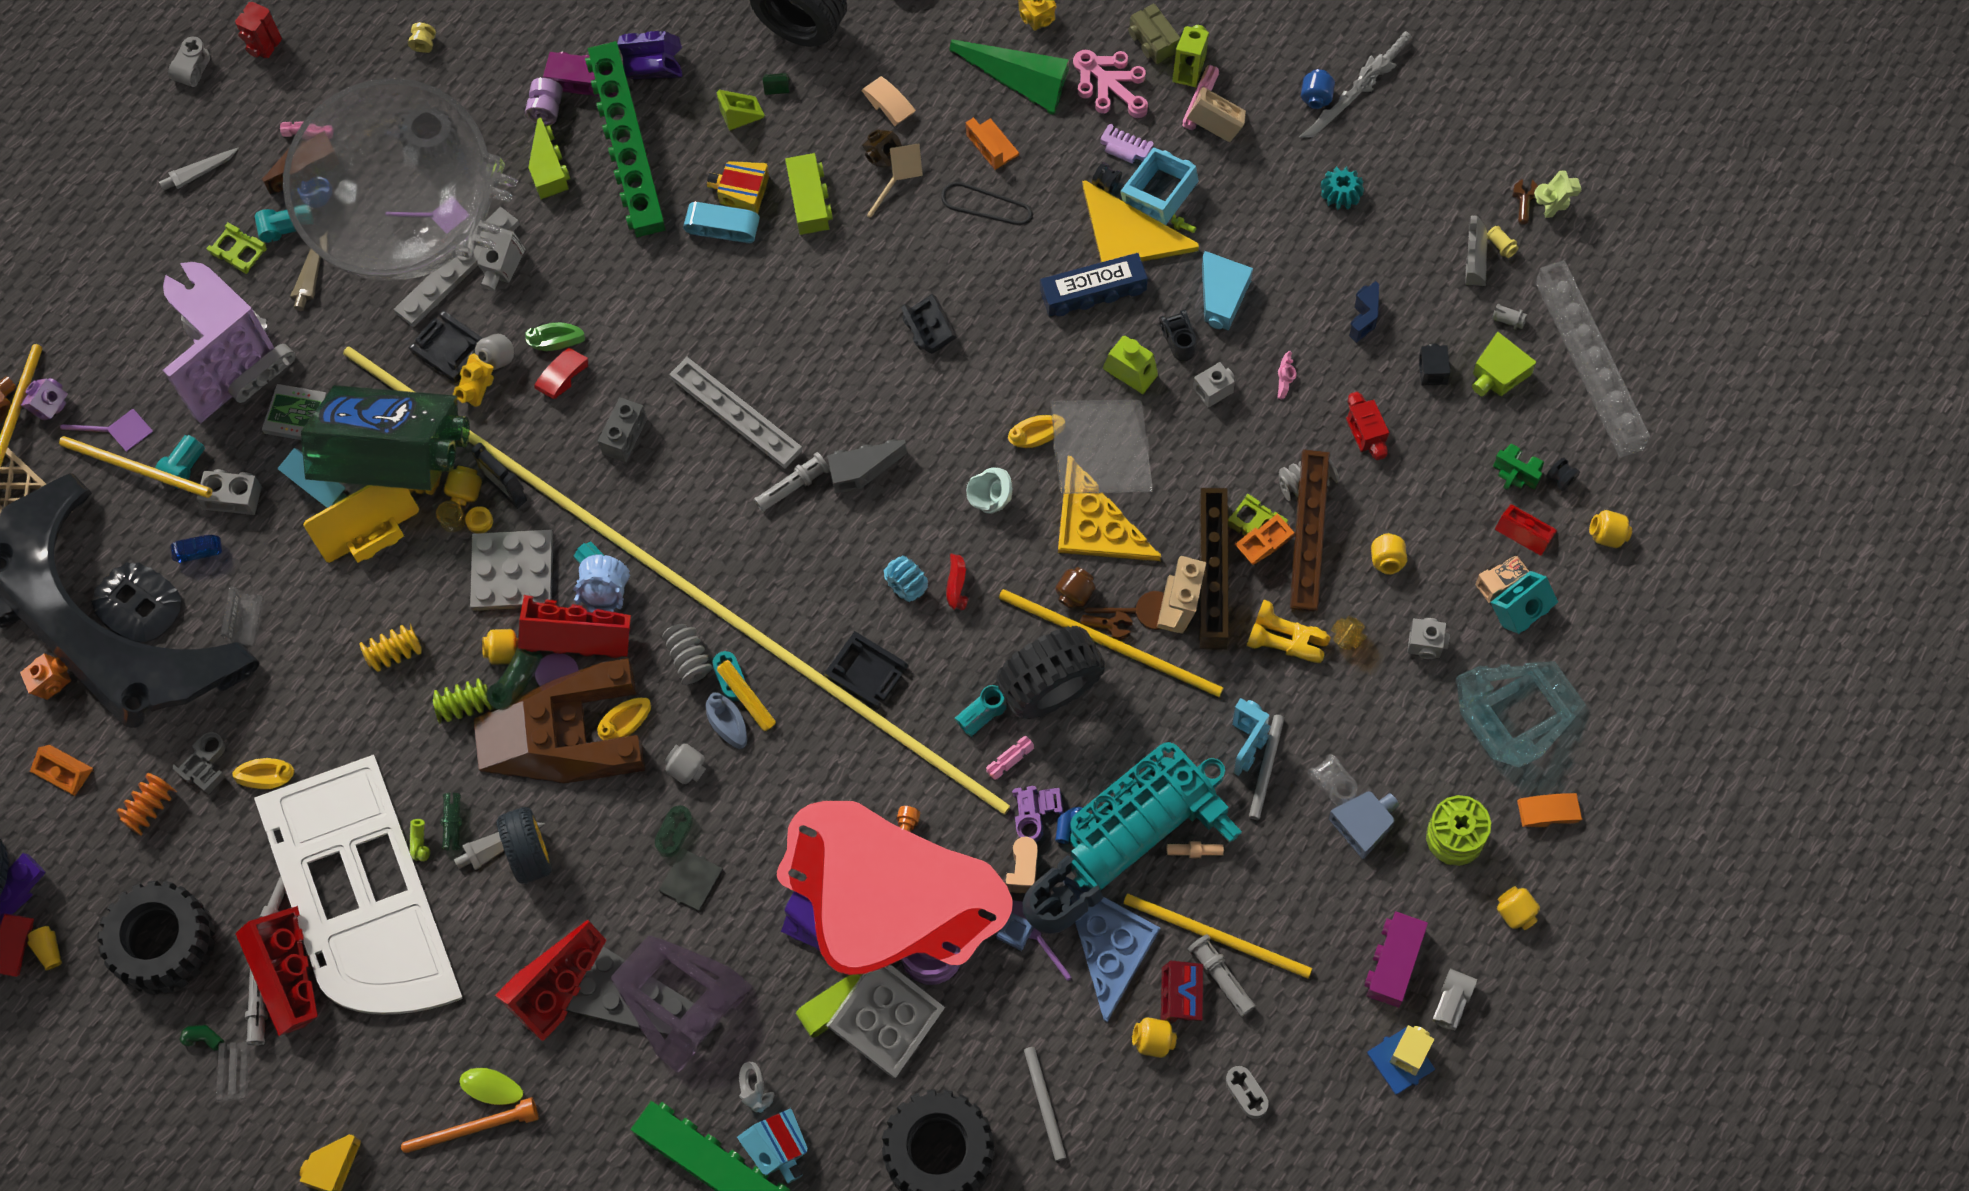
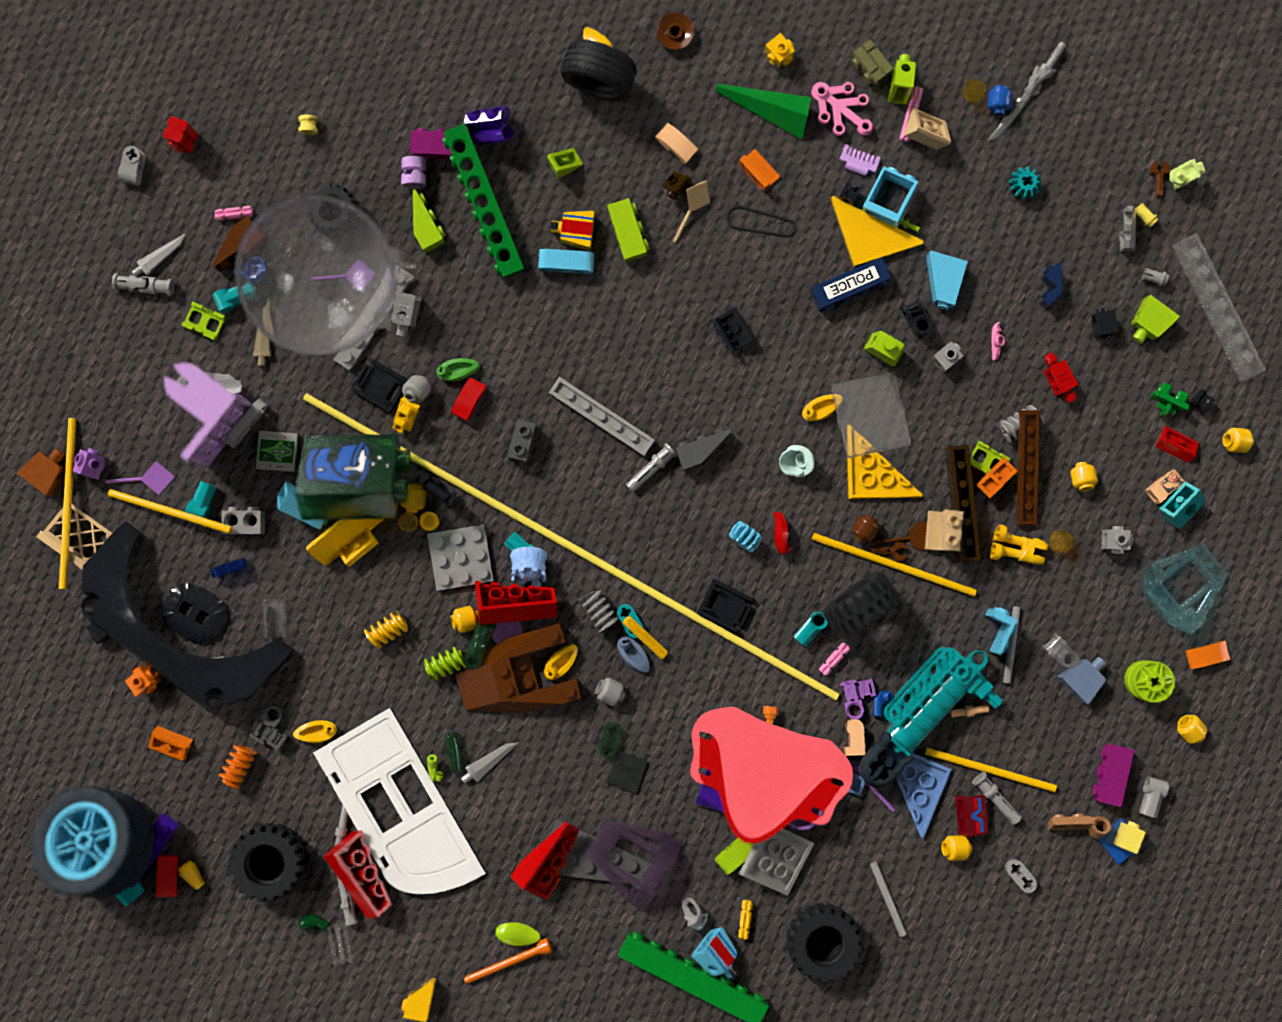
camera: 15 degrees left, 20 degrees up
(169, 197) = (142, 285): none -> light grey piece
(523, 845) = (510, 768): black wheel -> none
(776, 83) = (587, 134): dark green slope -> none
(828, 1107) = (745, 919): none -> yellow axle
(1285, 75) = (974, 90): none -> clear yellow gear
(1363, 1026) = (1079, 821): none -> medium nougat plate

